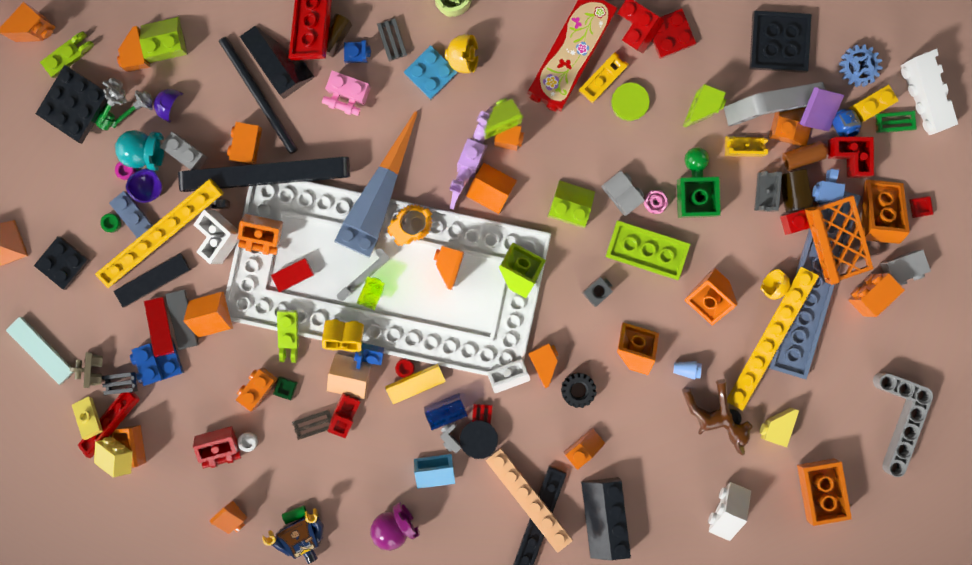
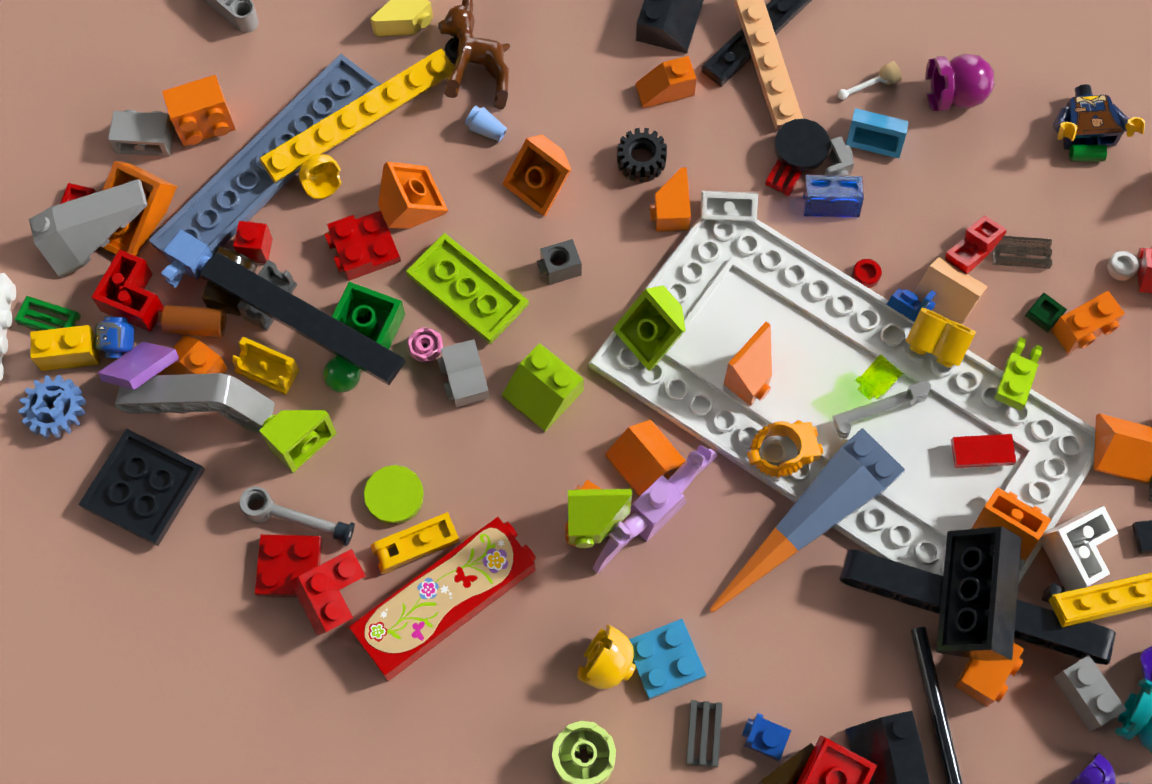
camera: 155 degrees left, 20 degrees down
(263, 174) = (979, 594): none -> black slope
(347, 88) = (801, 682): bright pink brick -> none
(415, 384) = (860, 246): yellow tile -> none
(442, 518) = (888, 74): none -> hinge
(650, 65) = (340, 531): none -> light grey piece
(727, 251) = (362, 244): none -> red plate
(737, 178) = (303, 318): none -> black tile
(822, 241) = (231, 198): orange fence -> none
(906, 182) = (79, 227): none -> light grey wedge

